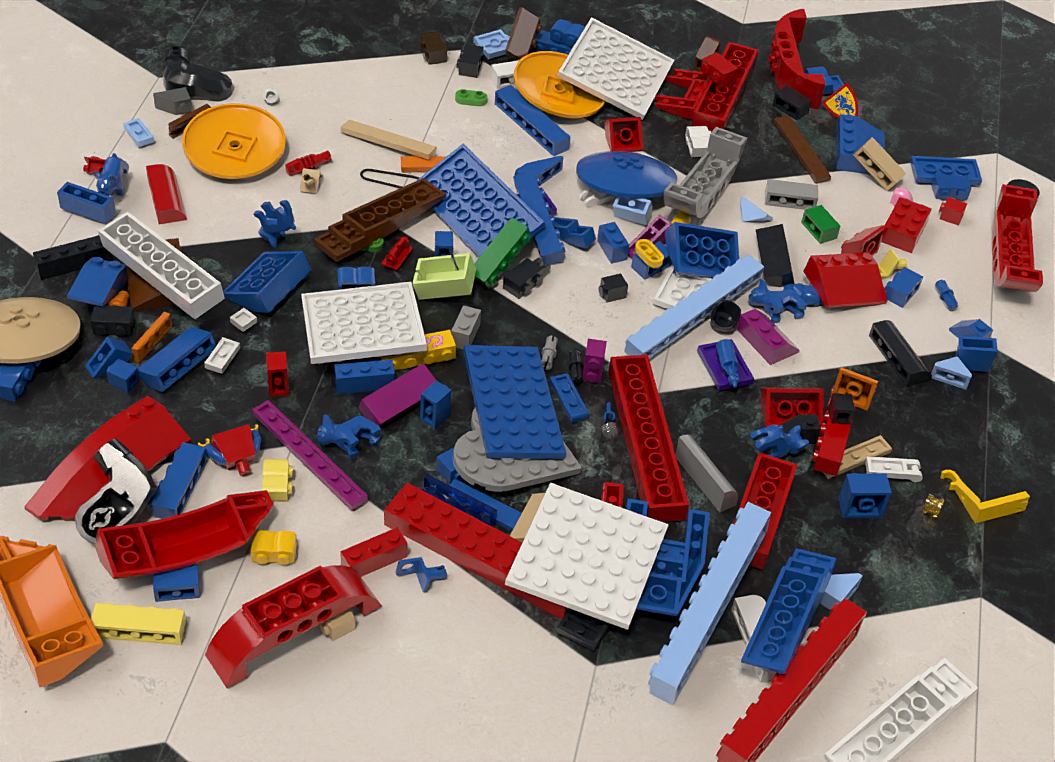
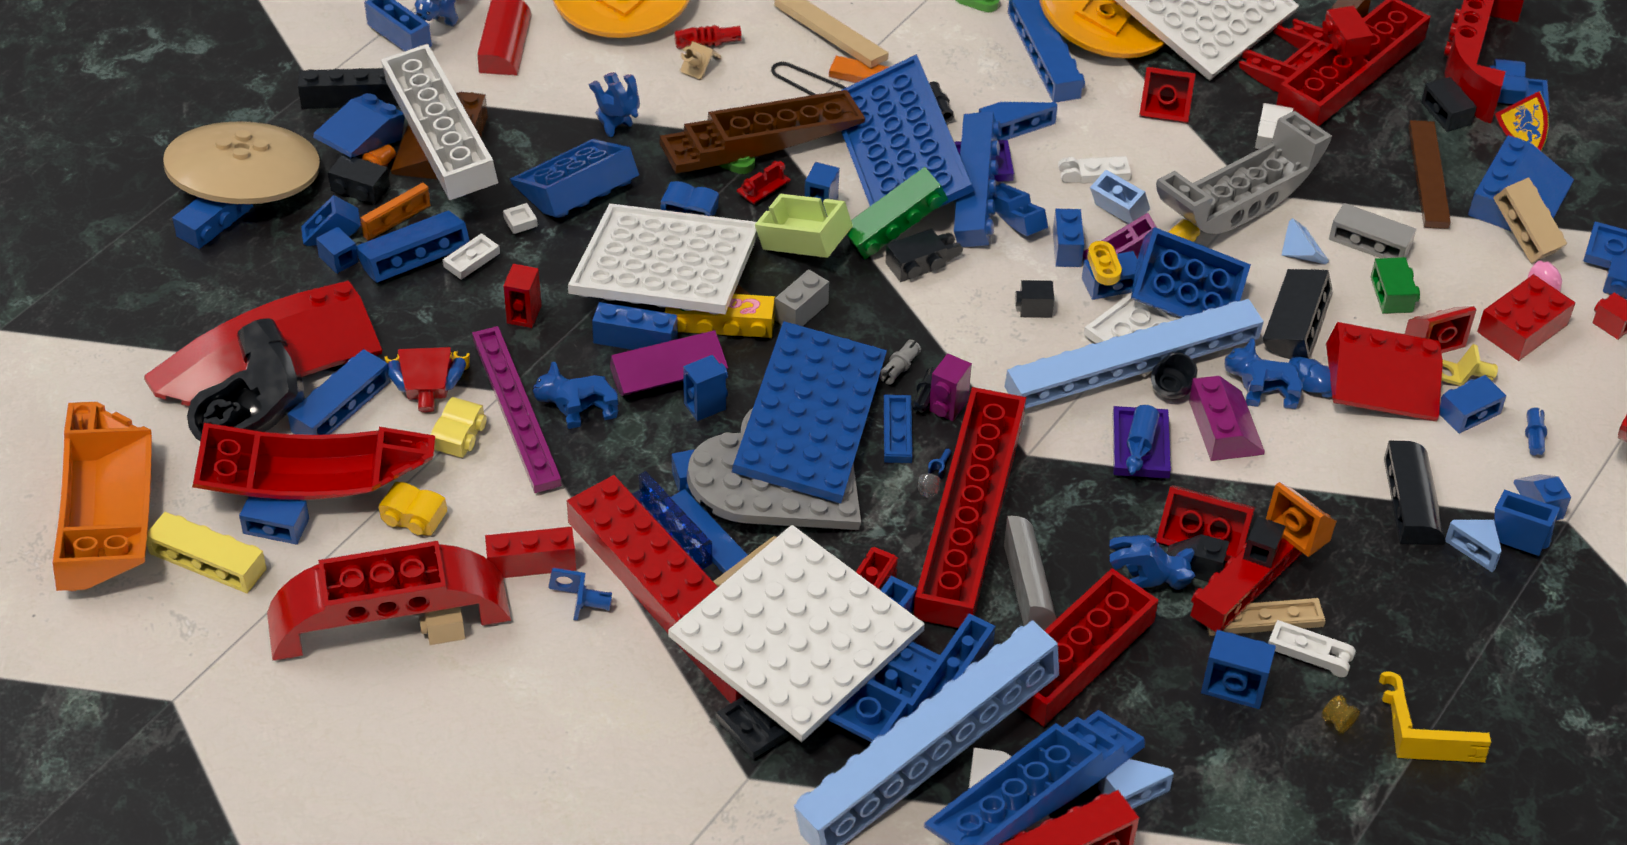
camera: 25 degrees right, 0 degrees up
(625, 174) = (1134, 147): blue dish -> none

